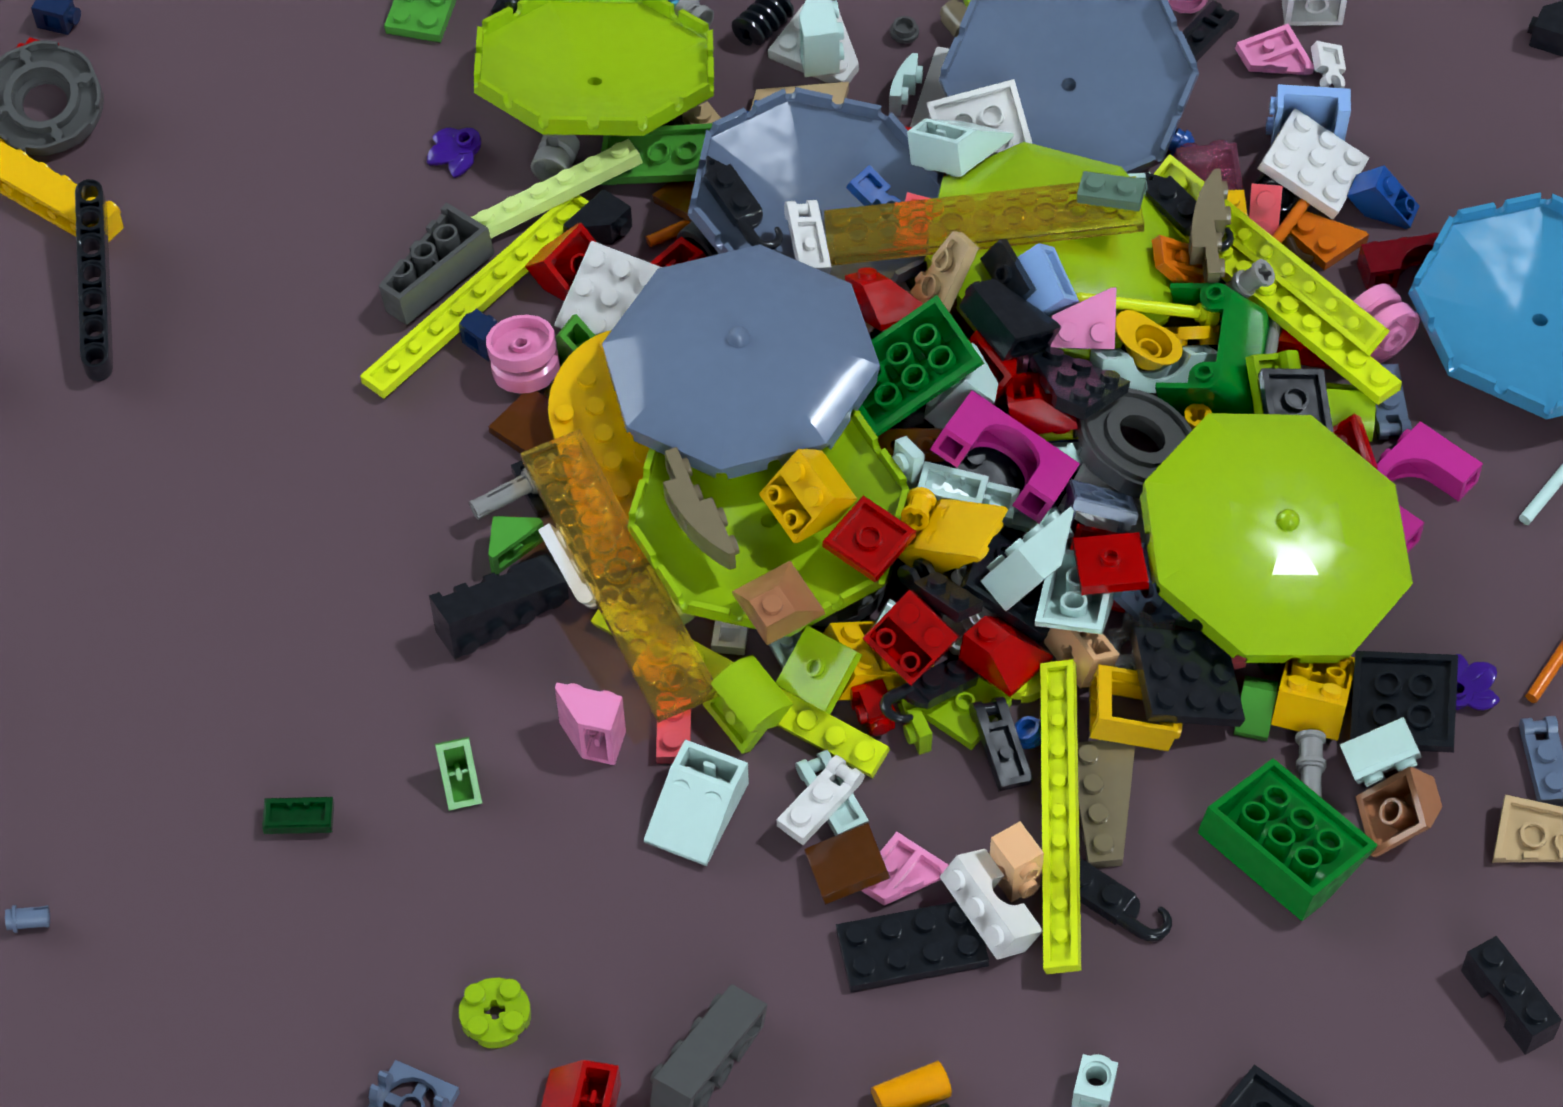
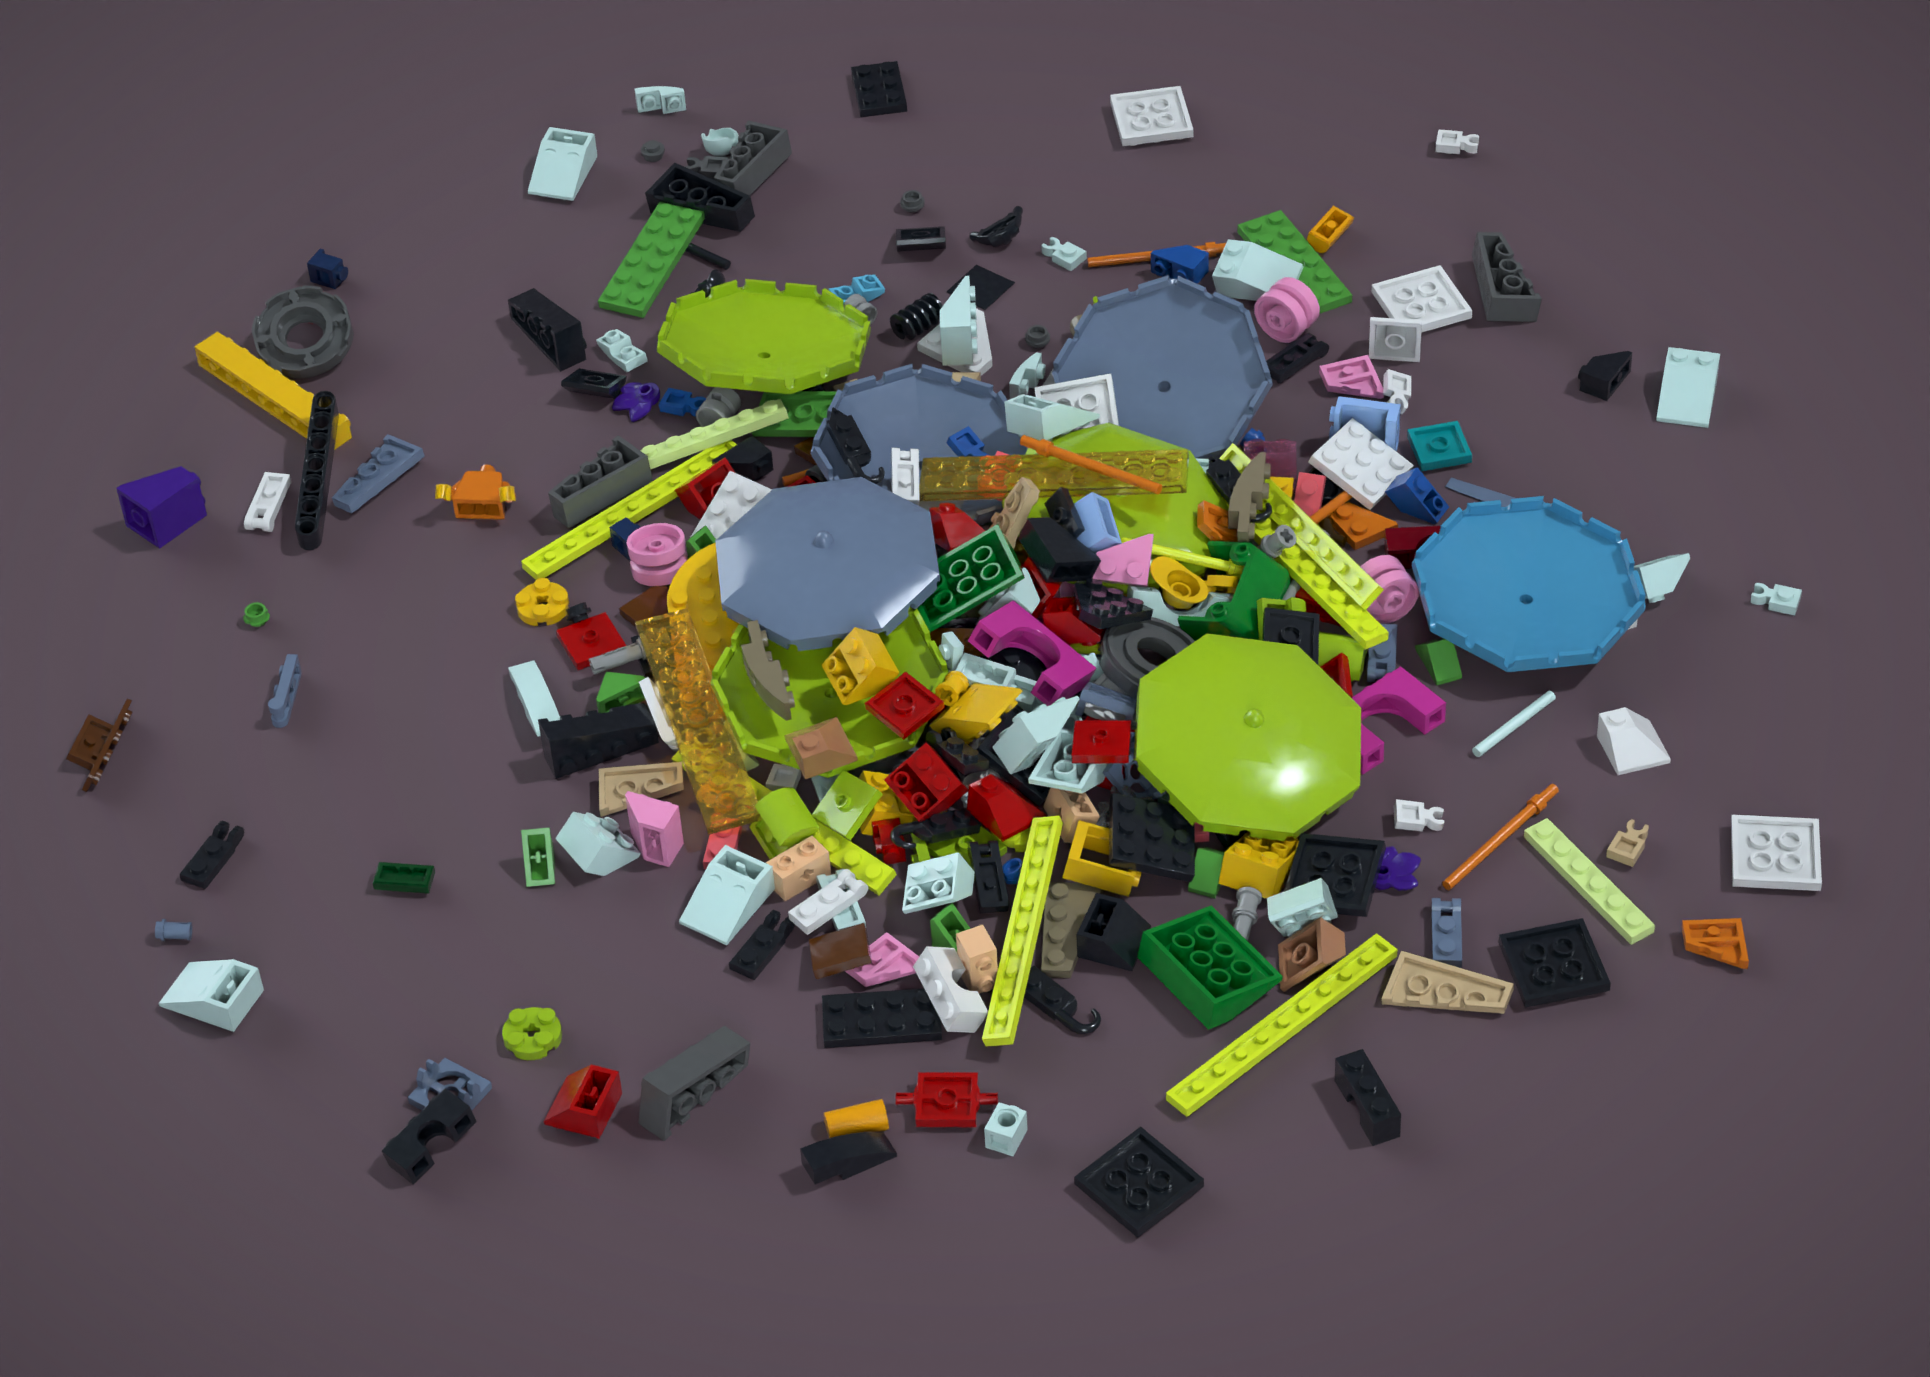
camera: 10 degrees right, 10 degrees down
(38, 322) = (267, 501): none -> white plate
(50, 469) = (256, 614): none -> bright green plate
(56, 808) = (212, 855): none -> black hinge
(93, 1000) = (215, 992): none -> light aqua slope
(107, 576) = (286, 691): none -> sand blue plate
(169, 267) = (381, 470): none -> sand blue wing
(293, 291) = (478, 494): none -> orange torso
(334, 67) = (549, 328): none -> black wedge
(390, 412) = (542, 591): none -> yellow plate
(401, 132) = (594, 383): none -> black slope
(411, 555) = (533, 694): none -> light aqua slope
(422, 87) = (621, 351): none -> light aqua slope
(441, 438) = (578, 612): none -> black plate
(463, 472) = (589, 639): none -> red plate
(506, 149) = (680, 402): none -> blue plate
(525, 746) = (596, 843): none -> light aqua slope
(554, 659) = (649, 780): none -> tan wing
(748, 864) = (761, 946): none -> black hinge
(775, 754) = (798, 867): none -> light nougat brick
(947, 765) = (937, 882): none -> light aqua slope
(971, 189) = (1047, 448): none -> orange bar
(974, 824) = (946, 926): none -> bright green slope
(1015, 1051) = (946, 1099): none -> red plate
(1111, 191) = (1162, 457): sand green plate -> none
(1164, 806) = (1111, 933): none -> black slope
(1384, 908) = (1281, 1025): none -> neon yellow plate
(1392, 130) = (1439, 446): none -> teal plate
(1456, 404) = (1440, 660): none -> bright green slope
(1460, 187) = (1478, 492): none -> sand blue sticker
(1473, 612) = (1413, 816): none -> white plate

